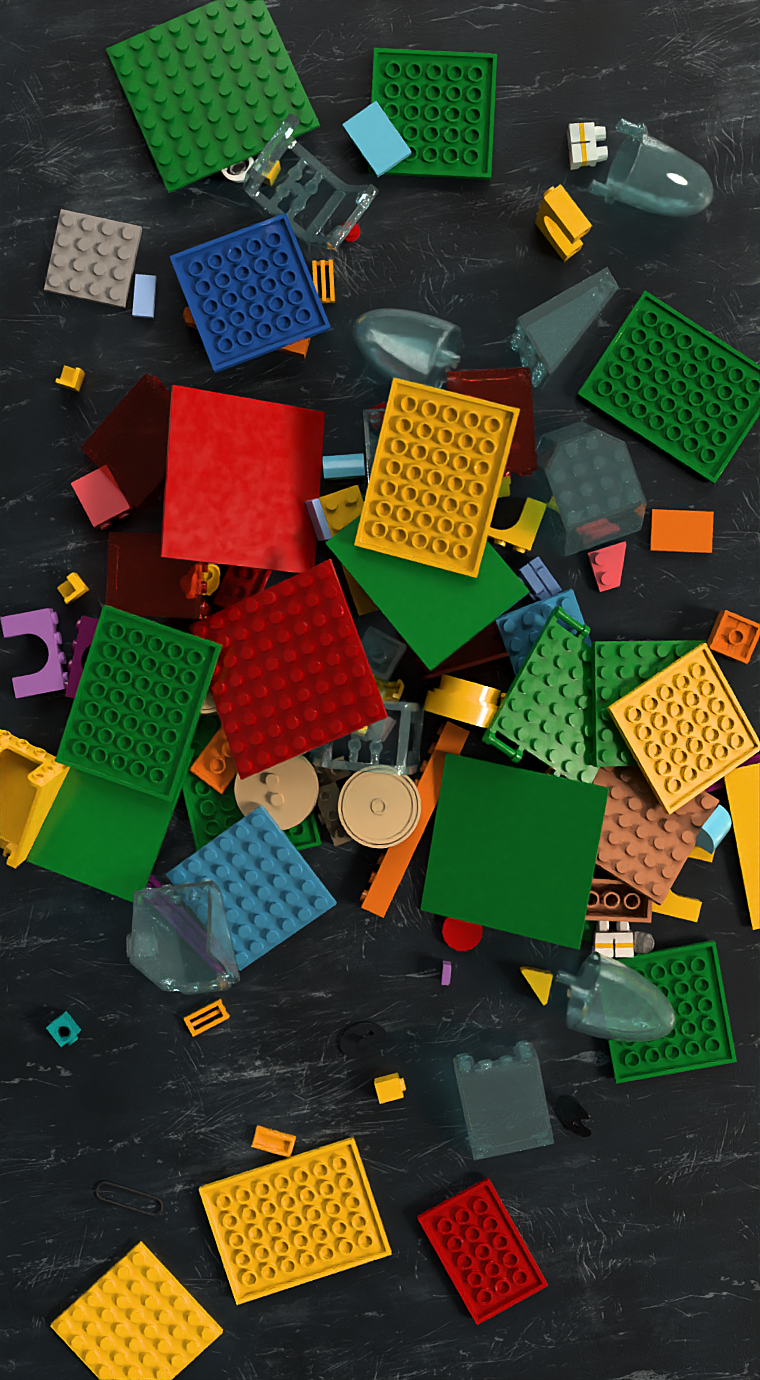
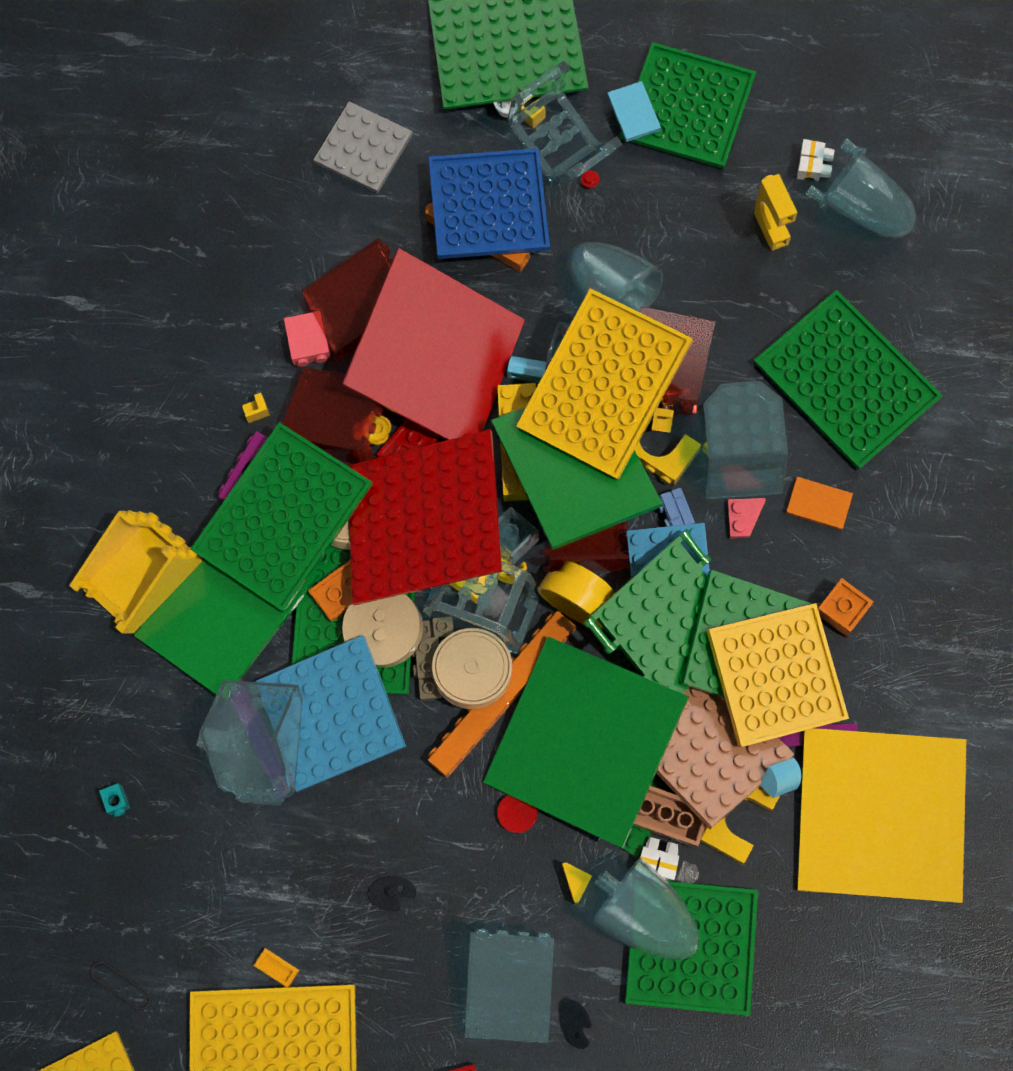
camera: 25 degrees right, 15 degrees down
(53, 674) = (209, 479): medium lavender arch -> none
(71, 378) = (312, 236): yellow panel -> none
(144, 296) = (397, 187): light blue tile -> none
(221, 1009) = (251, 836): light orange tile -> none
(318, 519) = (491, 403): light blue tile -> none
(322, 263) = (558, 200): light orange tile -> none
(389, 1087) = (404, 944): yellow brick -> none
(446, 973) = (490, 847): medium lavender tile -> none
(557, 326) = (753, 294): clear light blue windscreen -> none

